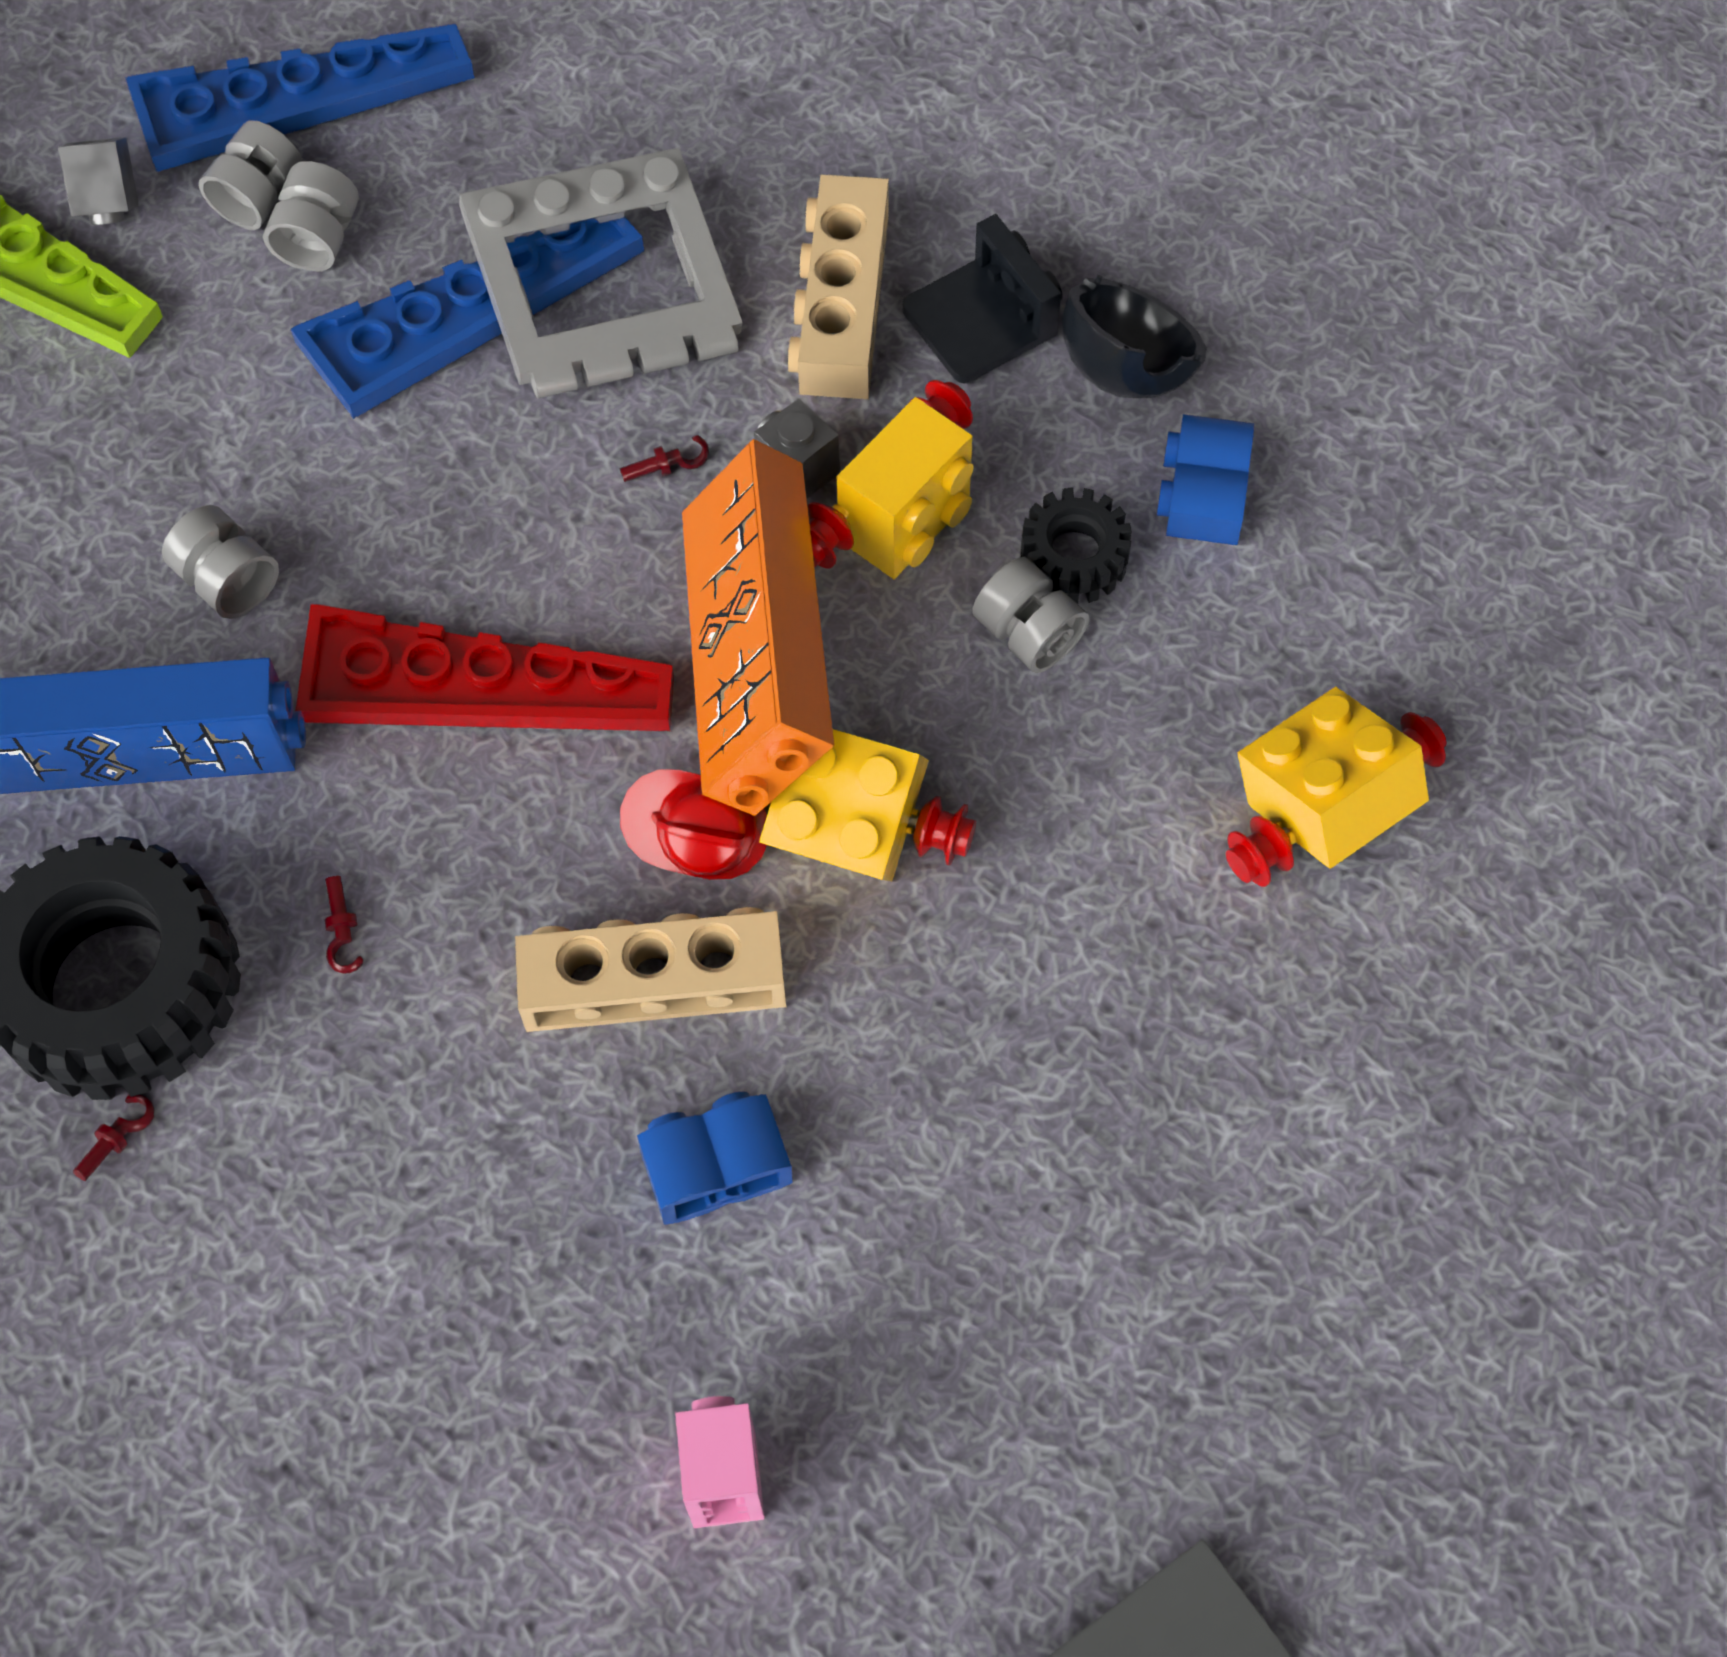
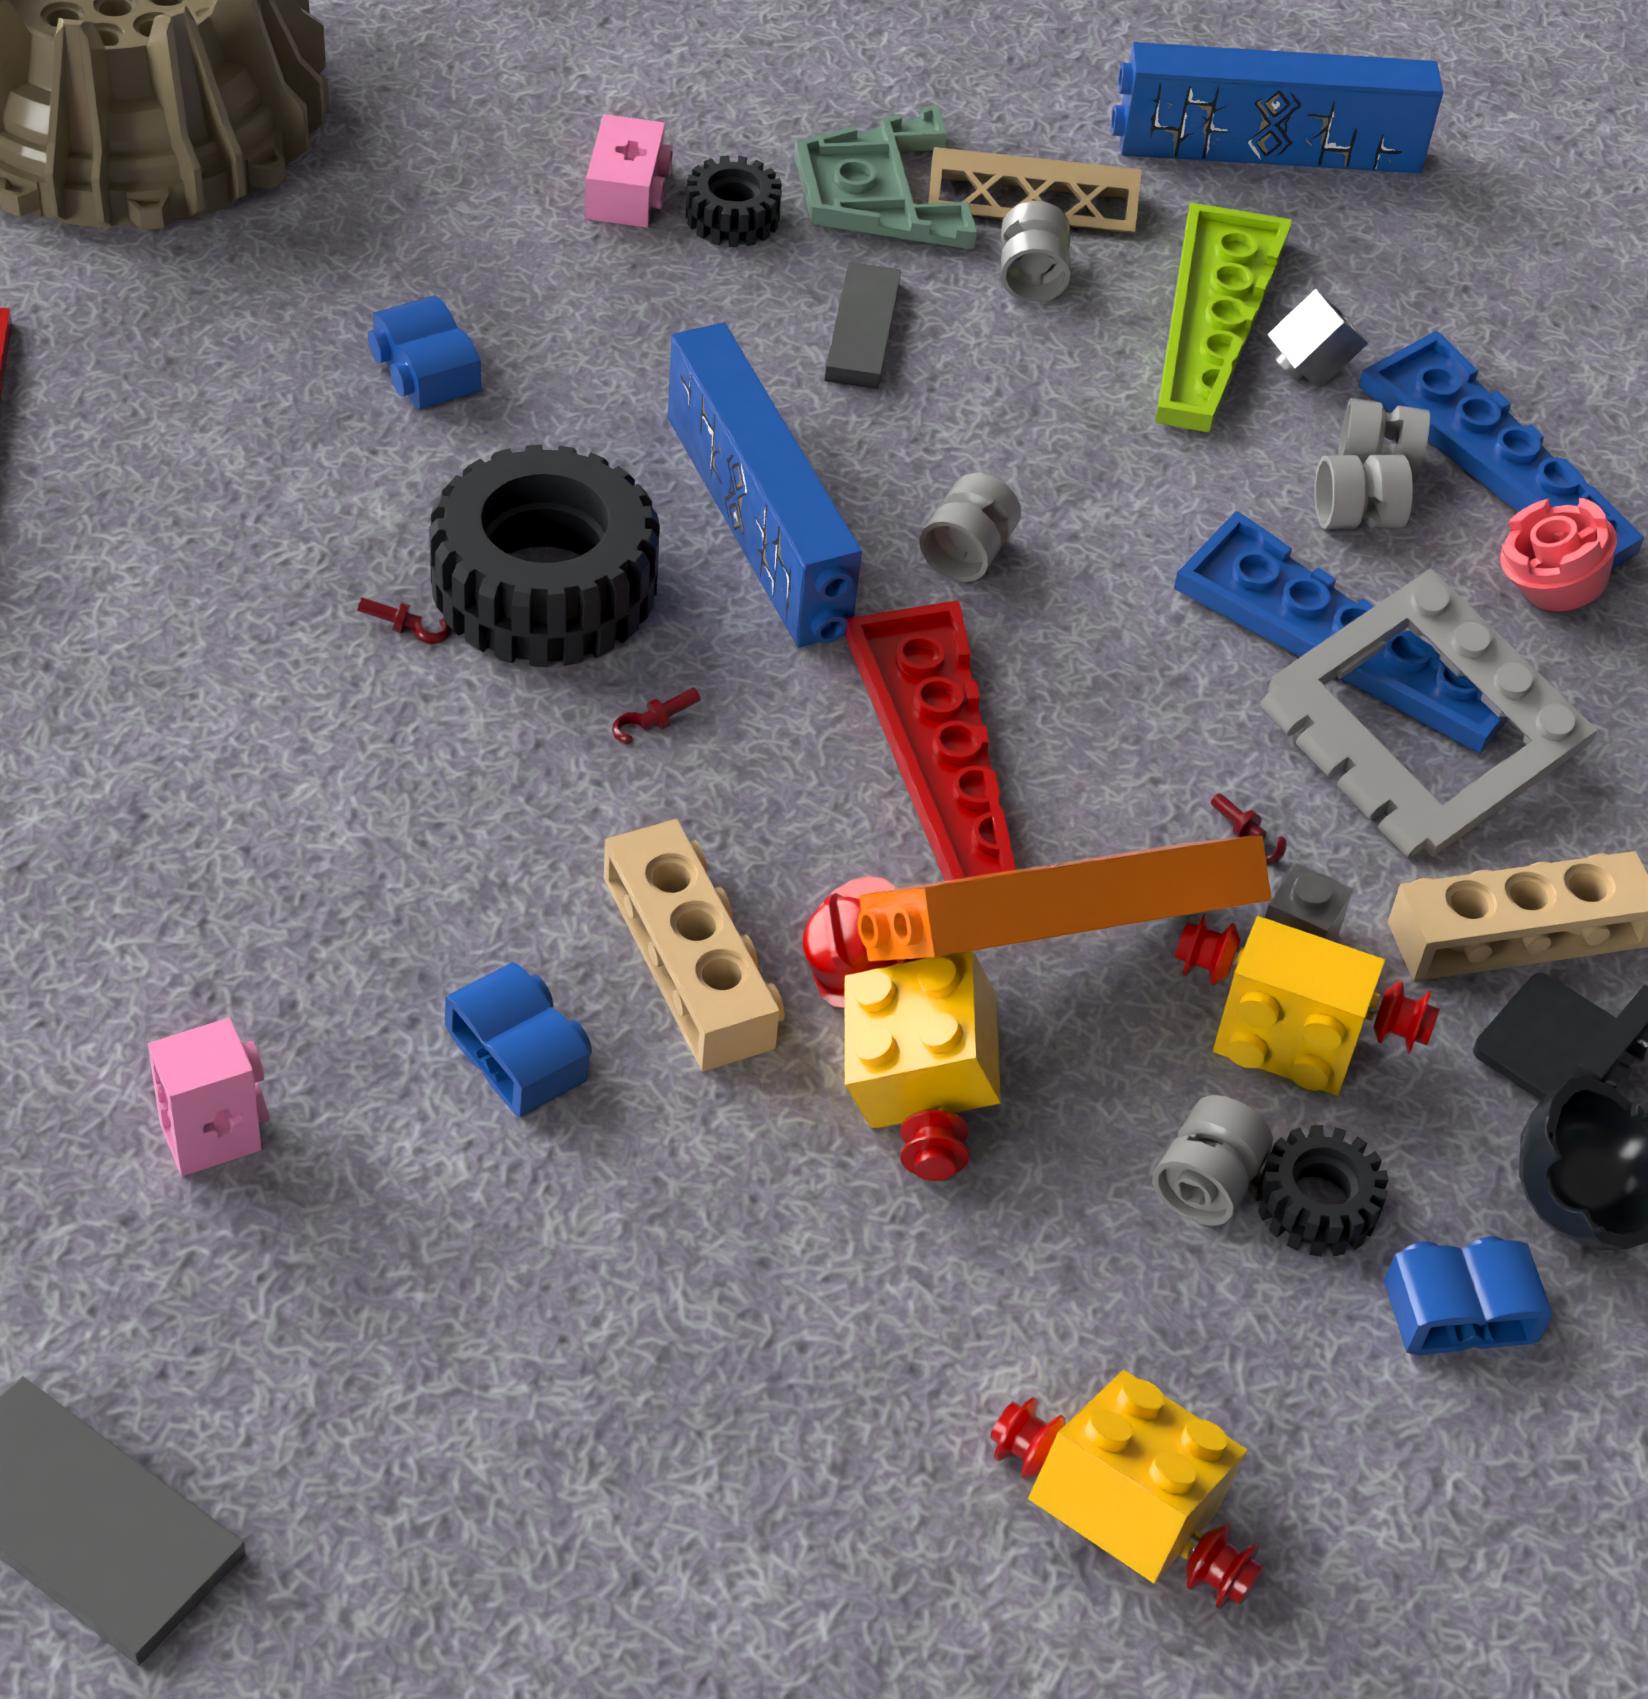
camera: 65 degrees right, 15 degrees down
(459, 91) = (1559, 554): none -> coral cone

